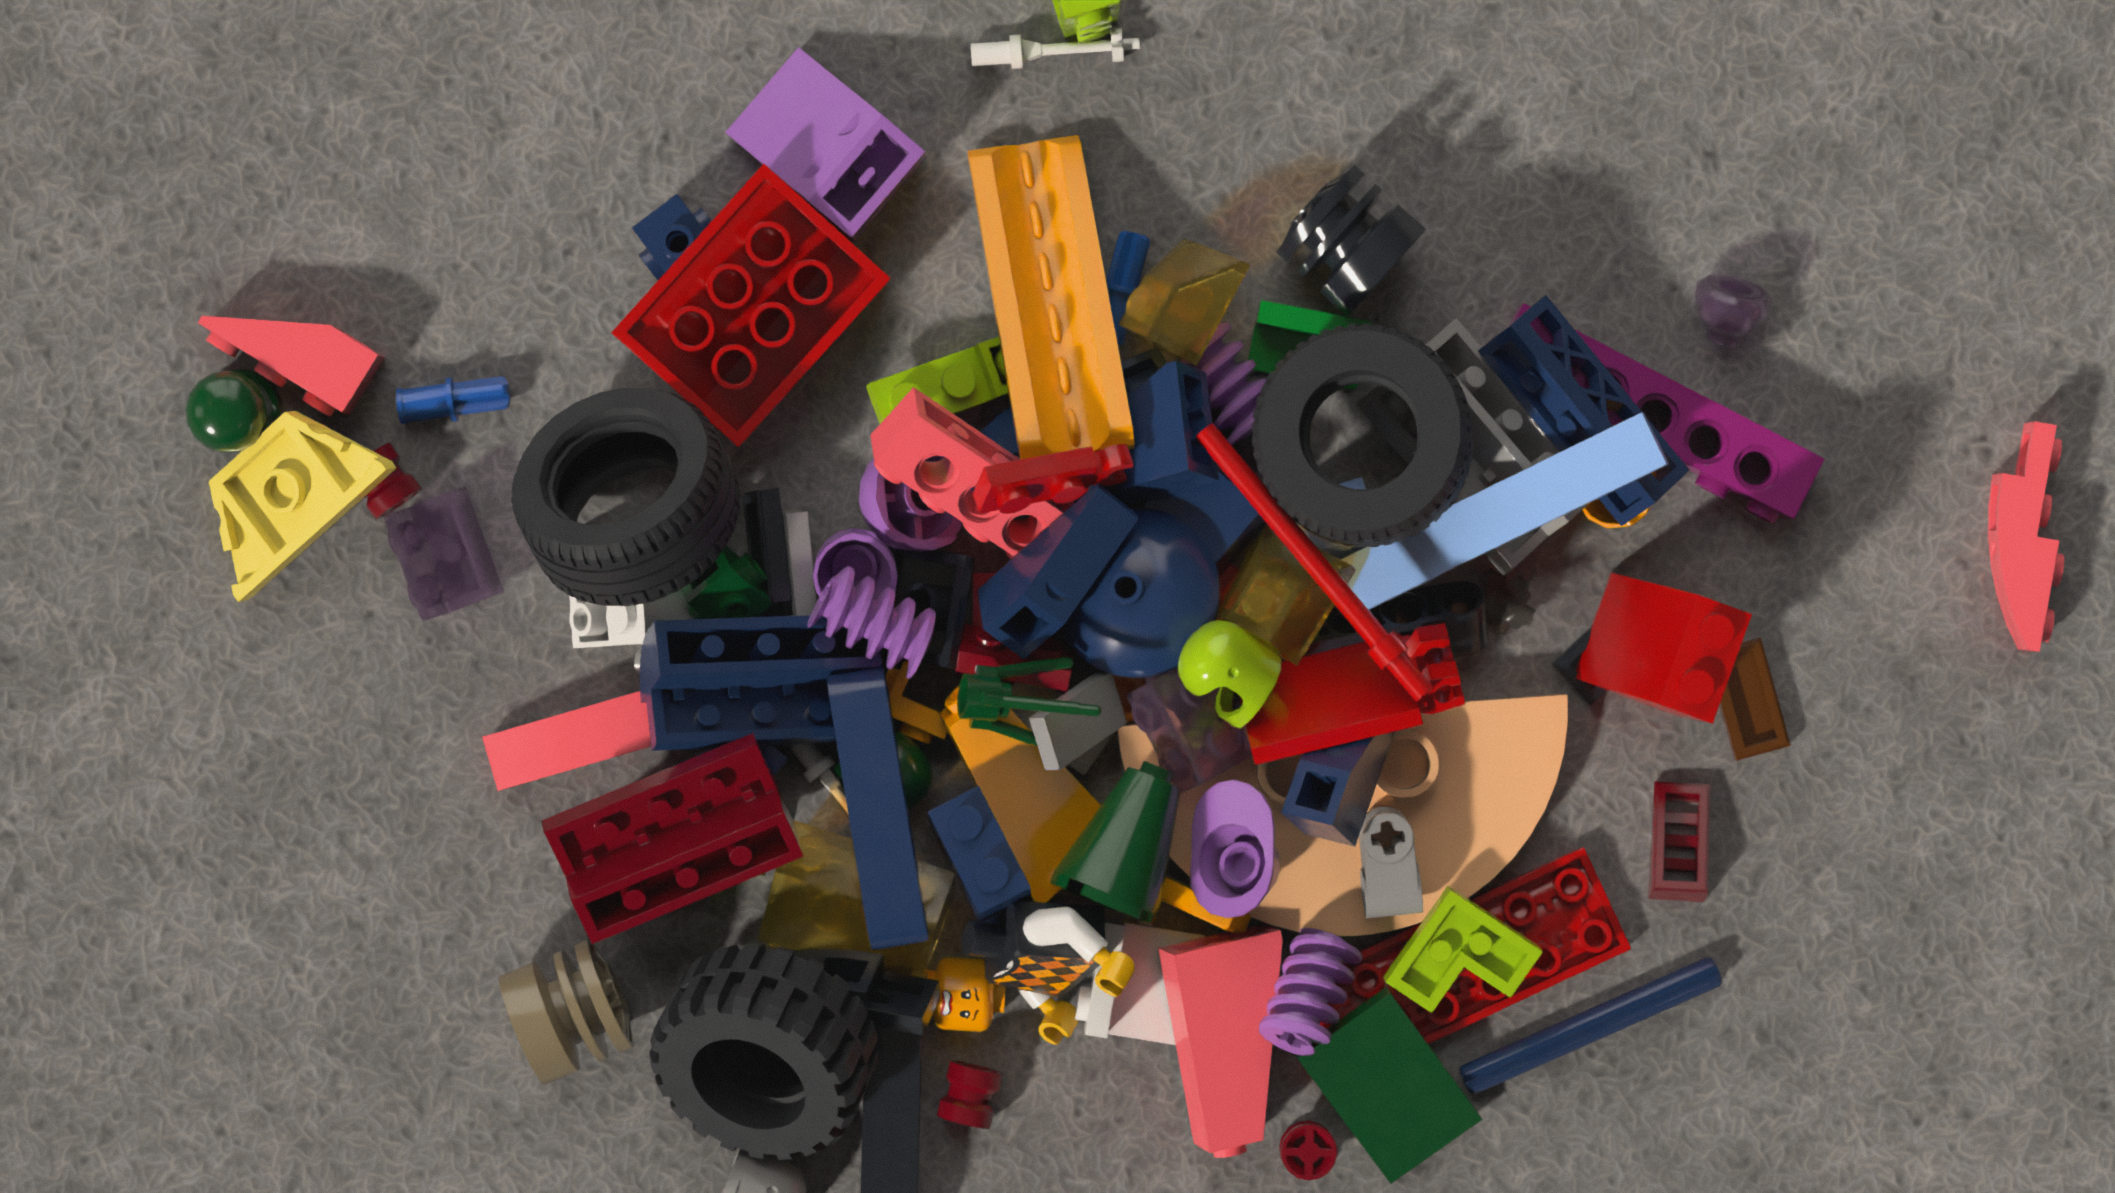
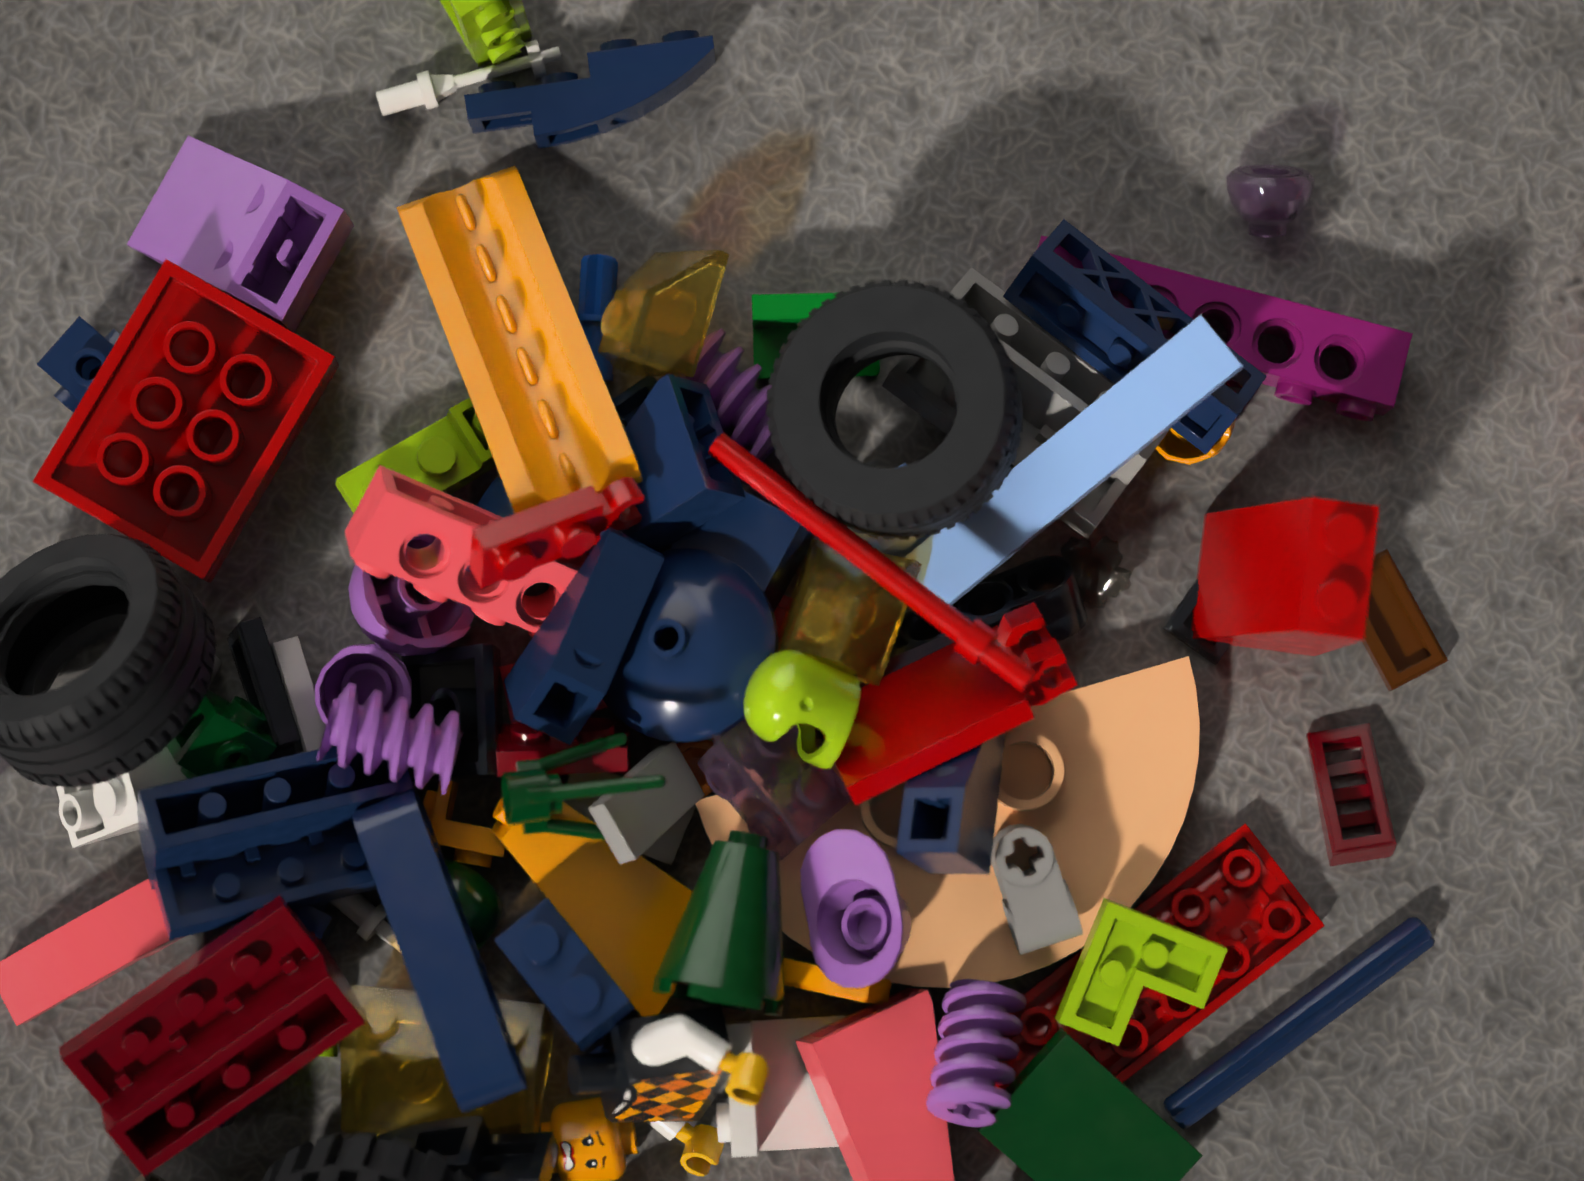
camera: 15 degrees left, 5 degrees down
(1186, 88) = (621, 88): none -> dark blue slope
(1349, 239) = (835, 207): black wheel -> none

